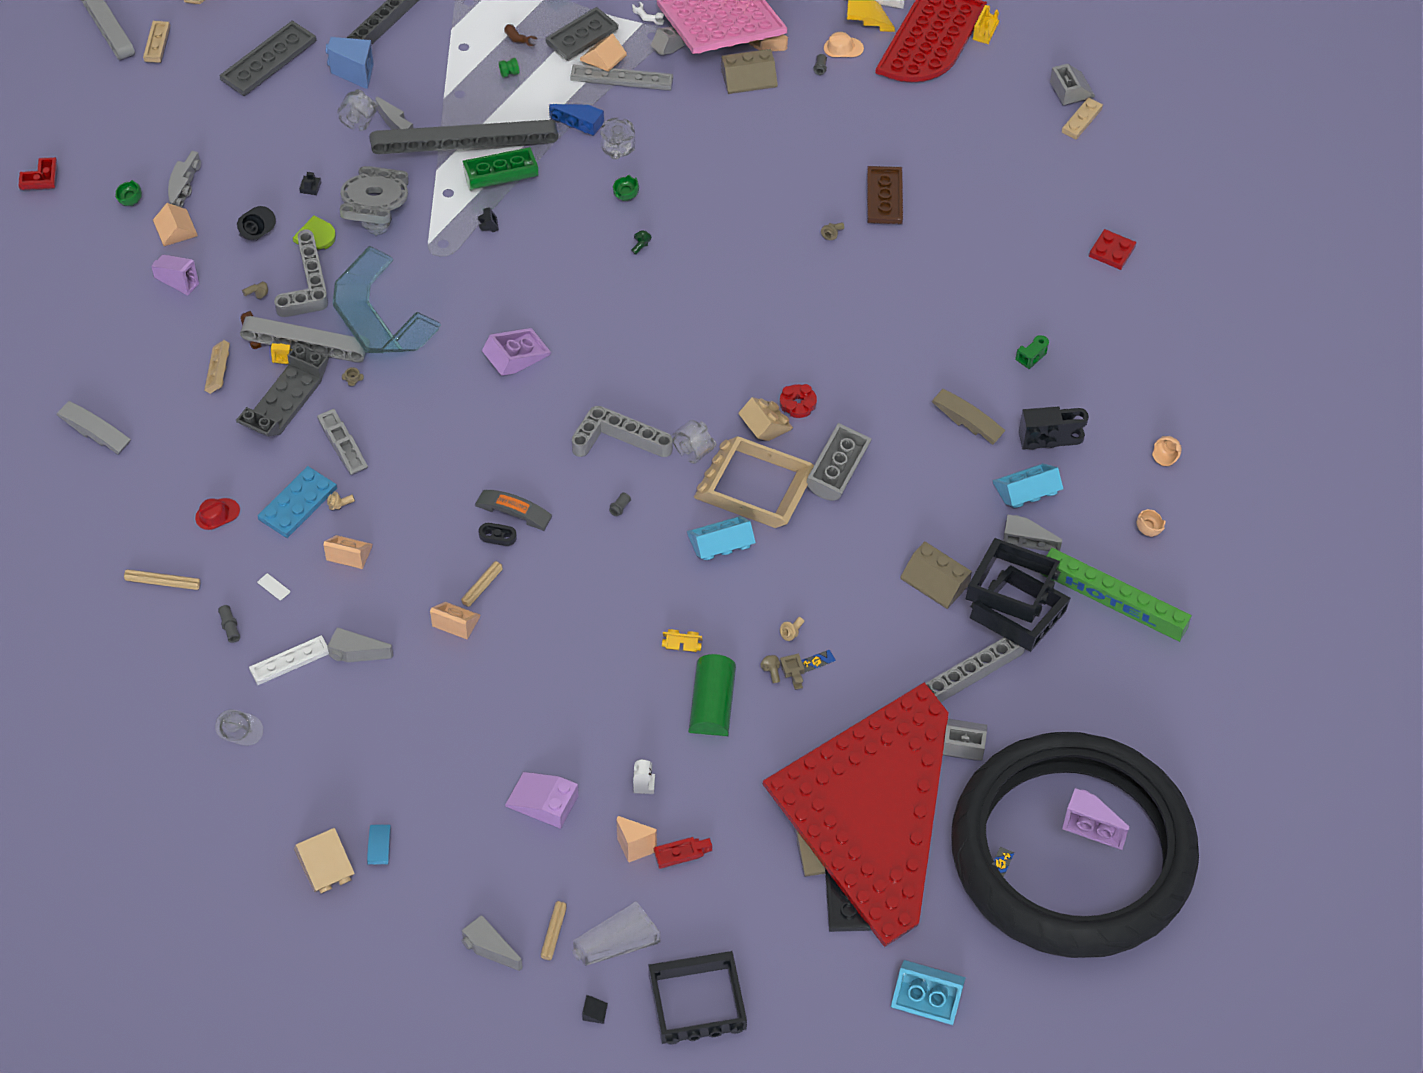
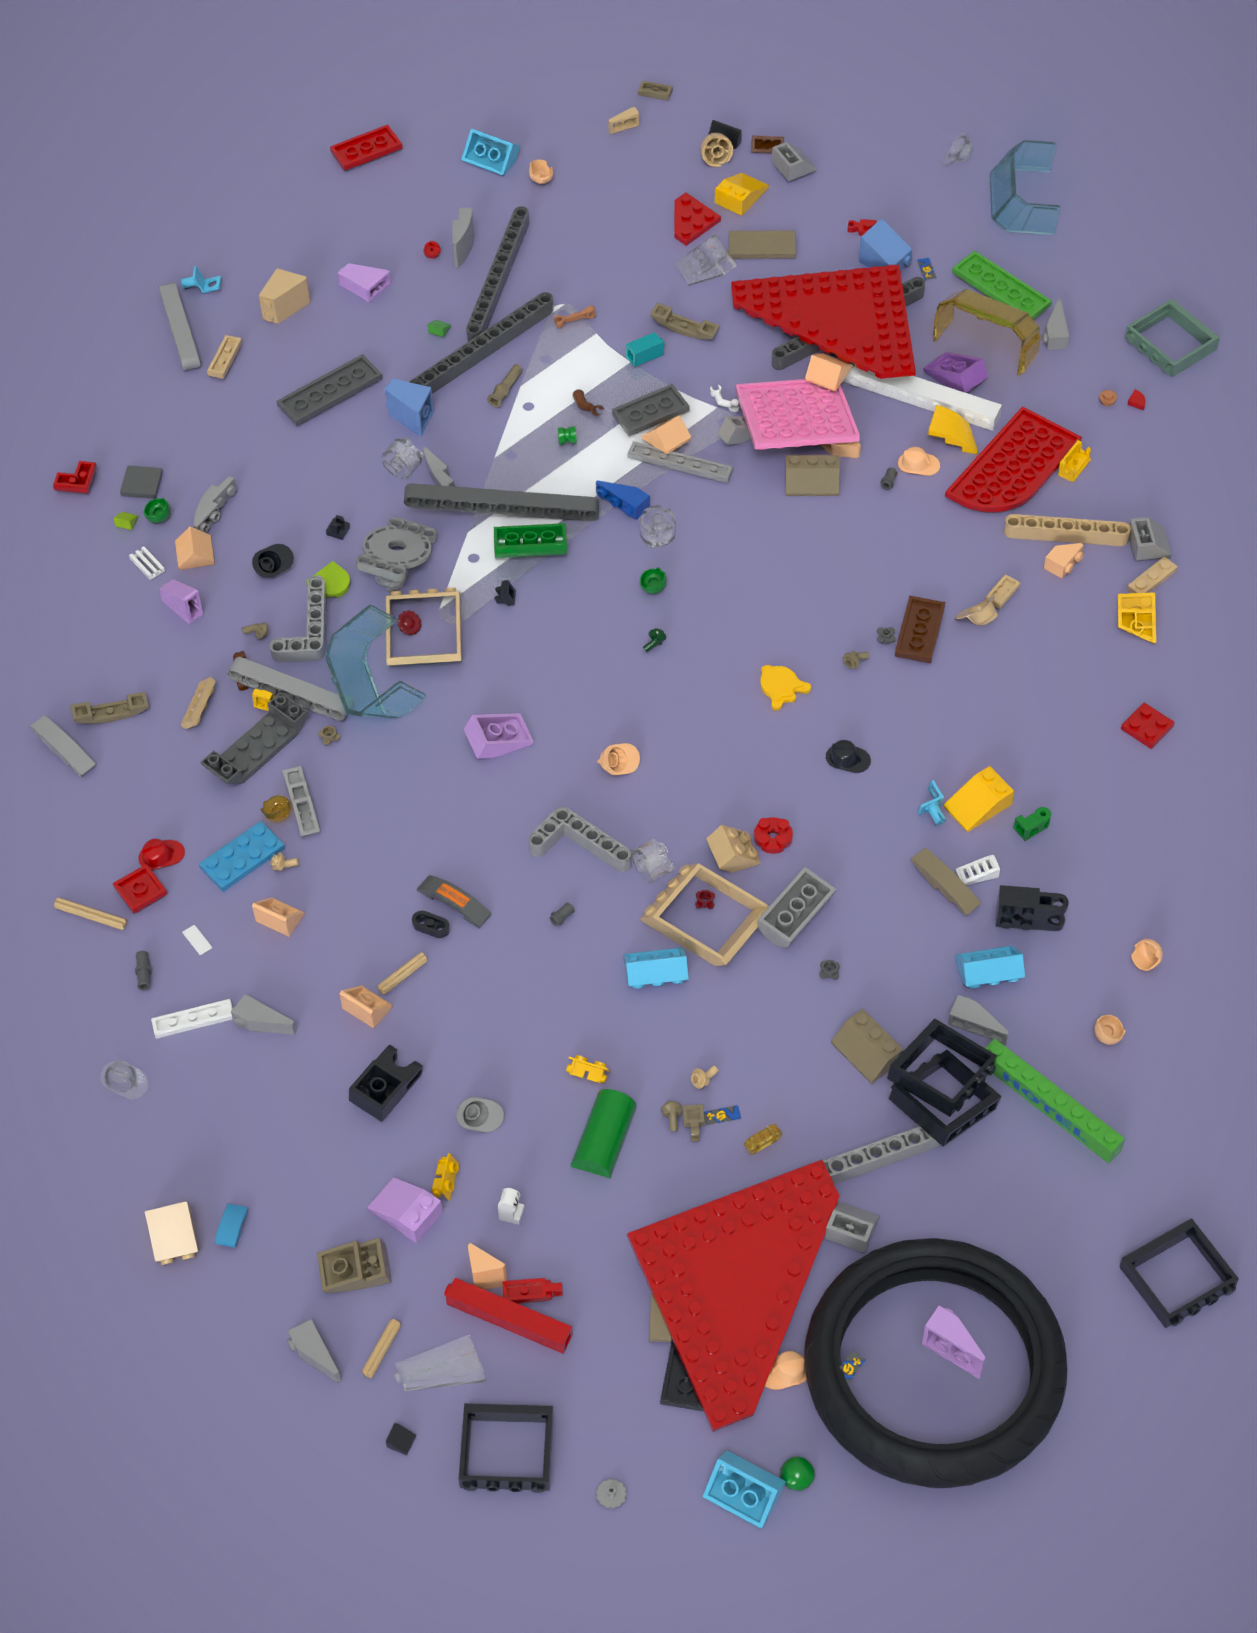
camera: 15 degrees right, 0 degrees up
(98, 208) = (125, 520): none -> lime slope
(104, 169) = (141, 482): none -> dark grey tile
(131, 388) = (110, 711): none -> dark tan slope
(133, 242) = (139, 554): none -> white tile
(205, 548) = (139, 888): none -> red plate
(320, 452) = (276, 808): none -> clear yellow hair
(403, 261) = (409, 622): none -> dark red piece
(426, 291) = (426, 658): none -> tan window
(435, 34) = (502, 390): none -> dark tan pin
(492, 688) = (383, 1084): none -> black brick
(508, 860) = (354, 1266): none -> dark tan slope
(573, 754) = (447, 1168): none -> yellow hinge
(591, 699) = (479, 1114): none -> light grey piece
(637, 354) = (619, 759): none -> light nougat piece
(667, 877) = (508, 1315): none -> red brick
(750, 464) = (705, 895): none -> dark red plate
(770, 265) = (781, 685): none -> yellow tile
(805, 1021) = (611, 1493): none -> light grey piece
(847, 319) = (848, 757): none -> black piece
(855, 205) = (886, 635): none -> dark grey plate
(862, 675) = (763, 1139): none -> clear yellow beam
(882, 508) = (833, 966): none -> dark grey plate
(937, 172) = (980, 613): none -> tan piece
(939, 350) = (933, 805): none -> medium azure bracket
(940, 878) = (787, 1371): none -> light nougat piece
(951, 150) = (1003, 591): none -> tan plate
(973, 967) = (797, 1473): none -> green hair
(980, 338) = (980, 799): none -> yellow slope
(995, 86) = (1067, 530): none -> tan beam
(998, 113) = (1062, 558): none -> light nougat slope
(1006, 398) = (989, 861): none -> white slope
(1078, 152) = (1138, 615): none -> yellow slope
(1290, 703) = (1164, 1242): none -> black window

